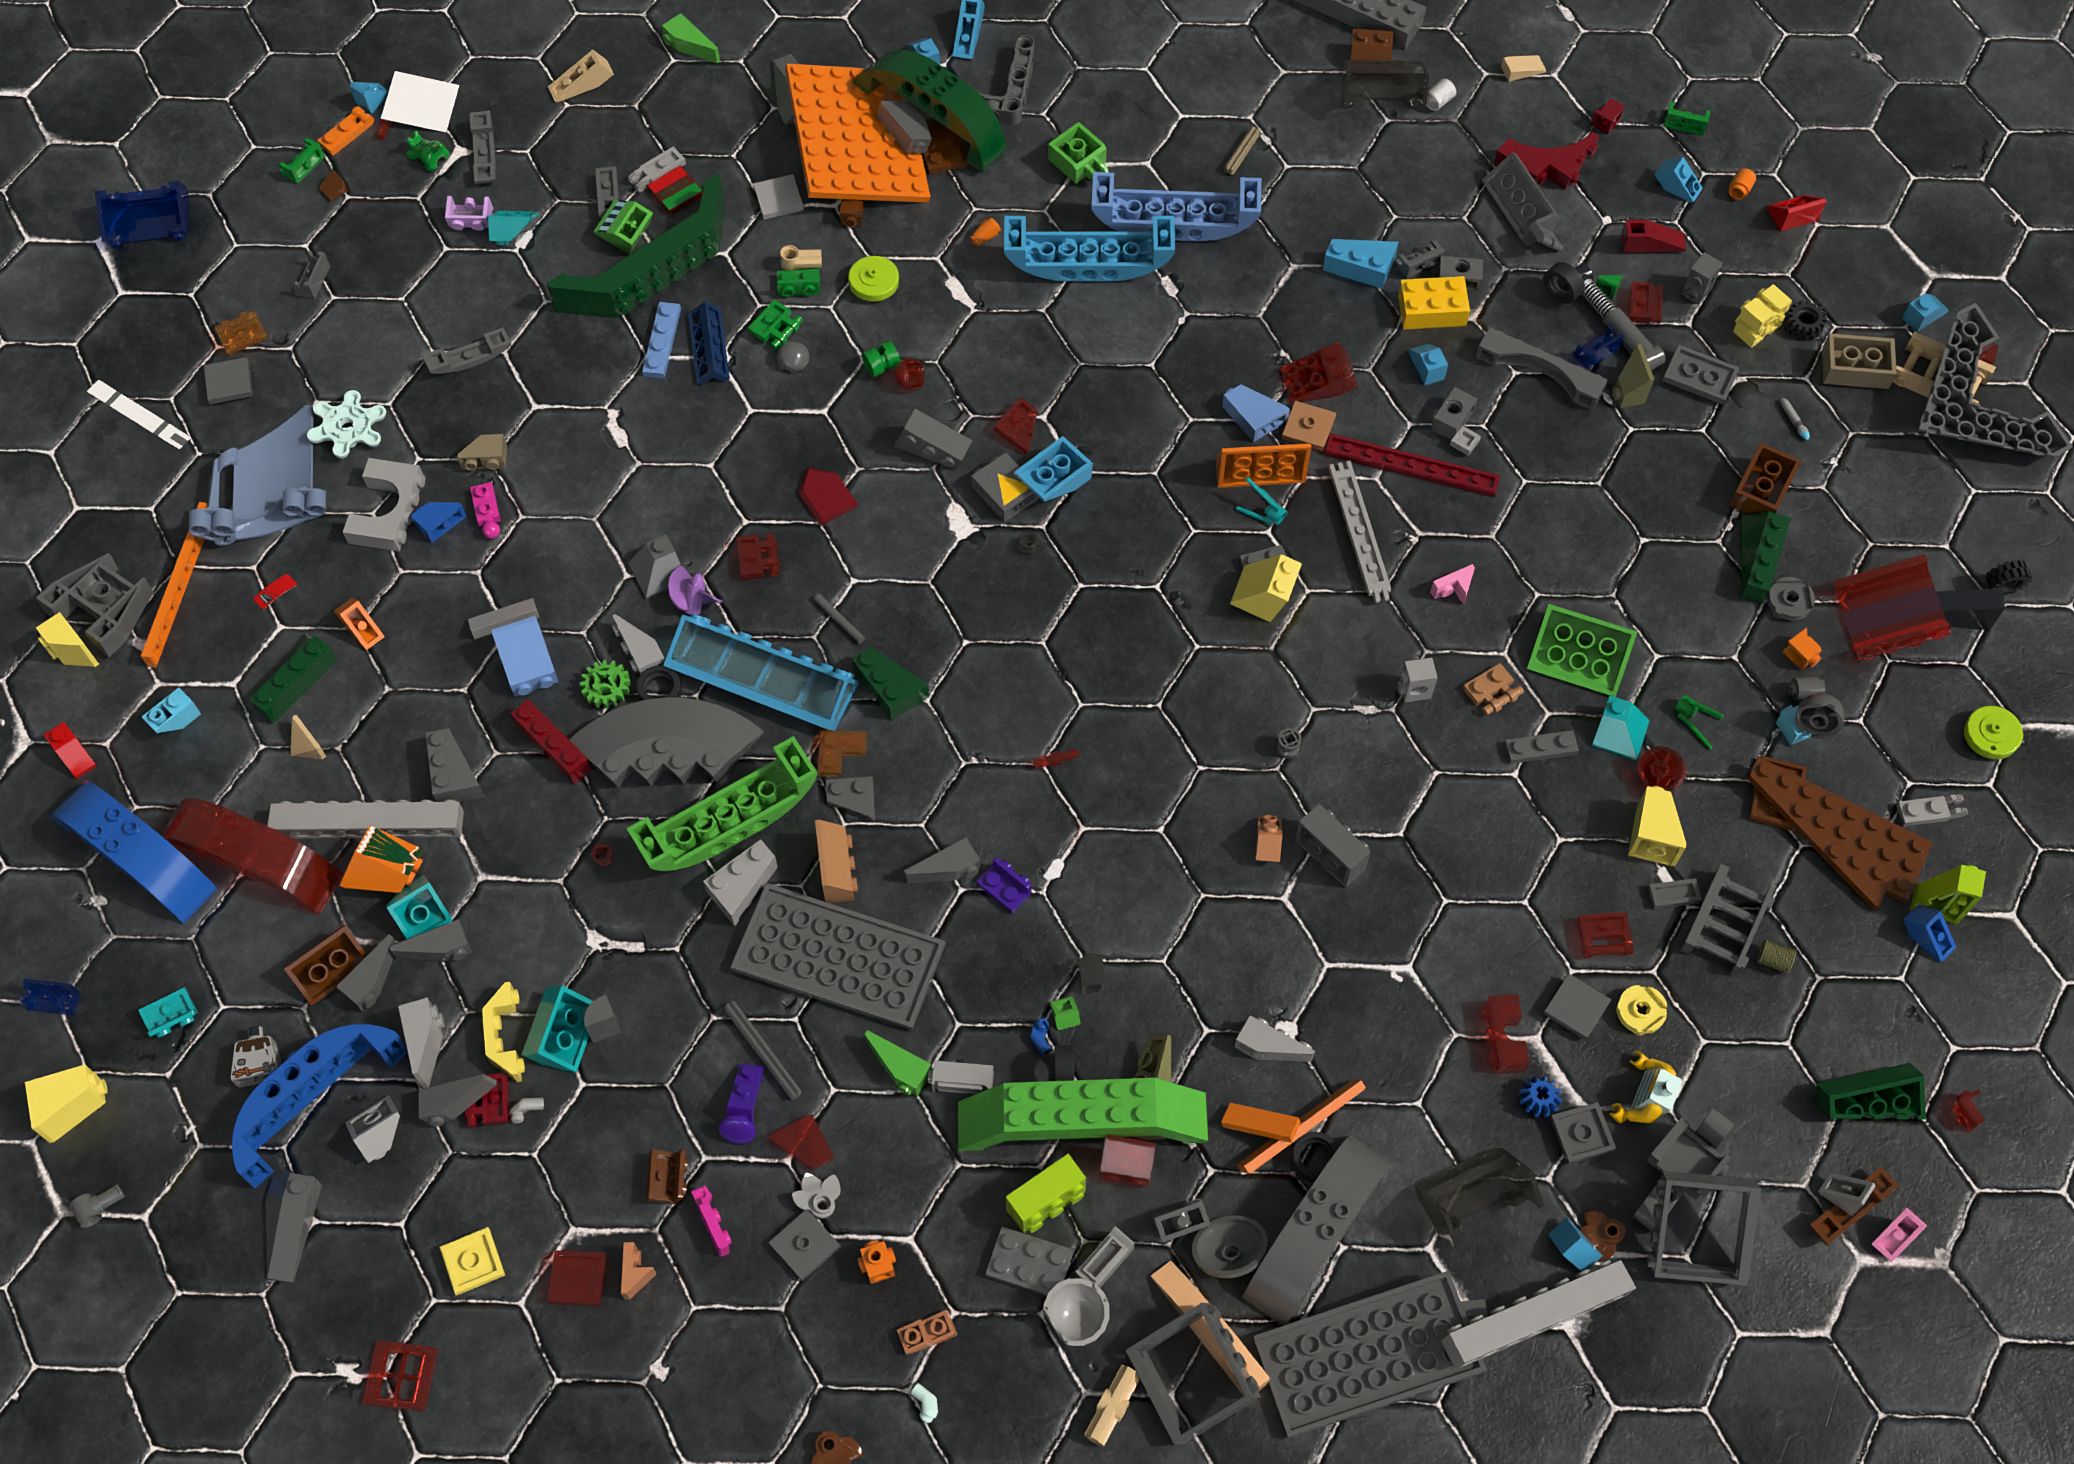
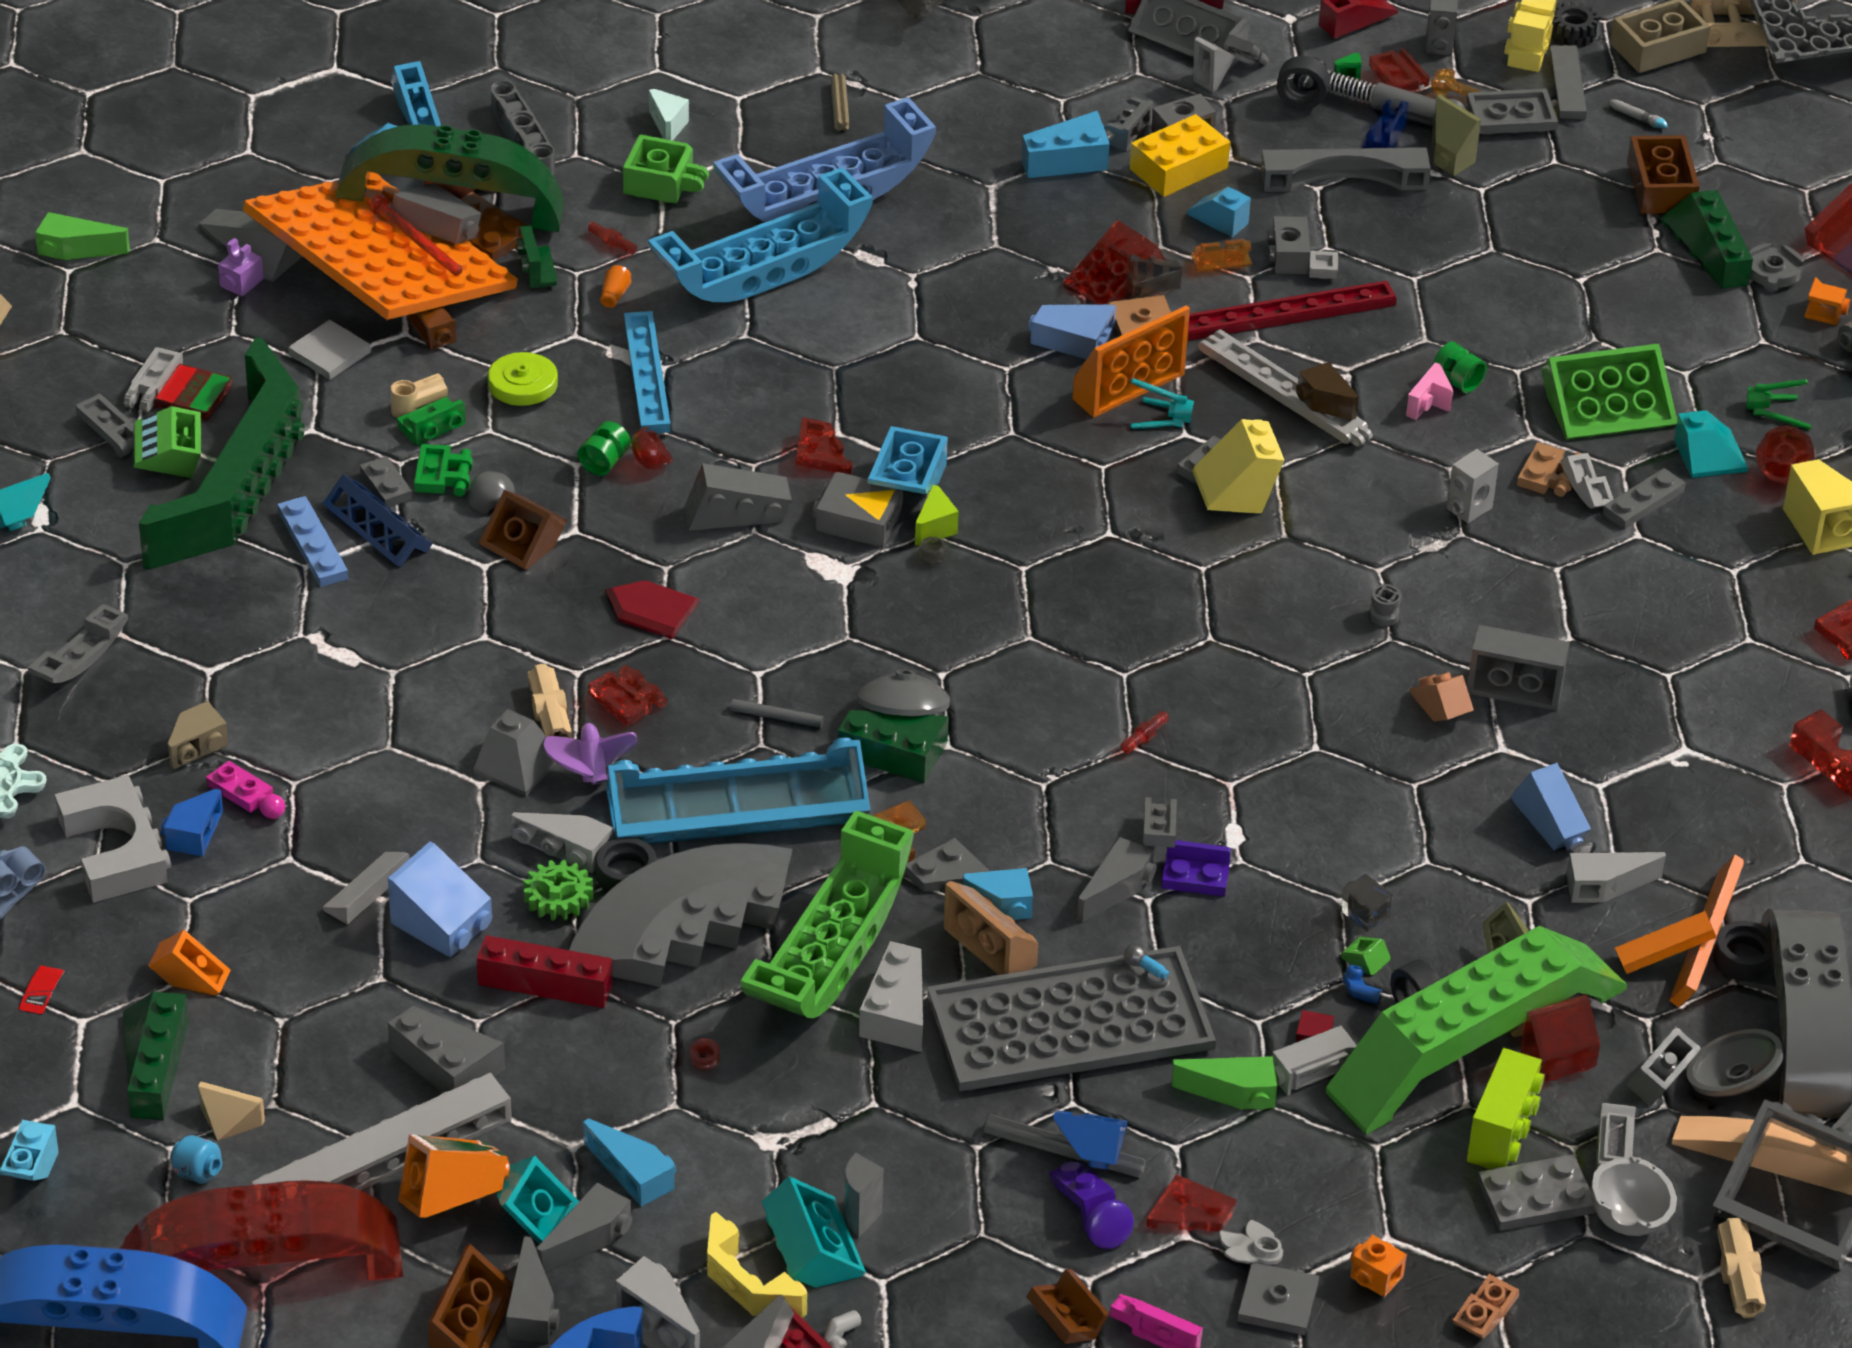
camera: 35 degrees left, 20 degrees down
(260, 766) = (196, 1159): none -> dark azure head
(497, 919) = (631, 1161): none -> dark azure slope
(704, 540) = (549, 702): none -> tan piece
(737, 316) = (386, 481): none -> dark grey plate
(765, 110) = (240, 269): none -> medium lavender brick
(771, 1060) = (1093, 1136): none -> blue slope
(787, 396) = (521, 530): none -> reddish brown slope
(868, 837) = (1006, 889): none -> dark azure slope
(873, 104) = (379, 206): none -> clear red bar
(906, 936) = (1136, 956): none -> piece
(916, 653) = (903, 695): none -> dark grey dish
(949, 188) = (535, 260): none -> dark green bracket
(954, 311) = (647, 371): none -> dark azure plate
(986, 1051) = (1313, 1024): none -> dark red tile
(1000, 840) = (1159, 823): none -> dark grey hinge
(1014, 192) = (612, 238): none -> clear red bar
(1046, 519) = (937, 517): none -> lime slope
(1121, 111) = (668, 112): none -> light aqua slope
(1270, 972) = (1552, 807): none -> medium blue slope
(1335, 396) = (1152, 277): none -> clear smoke wing
(1376, 551) = (1327, 392): none -> dark brown slope
(1399, 400) = (1211, 256): none -> clear orange hinge
(1491, 574) = (1461, 368): none -> green wheel
(1506, 714) = (1581, 474): none -> light grey slope
(1512, 235) = (1210, 64): none -> light grey slope
(1670, 327) = (1450, 84): none -> clear orange bar
(1764, 367) = (1567, 82): none -> dark grey tile

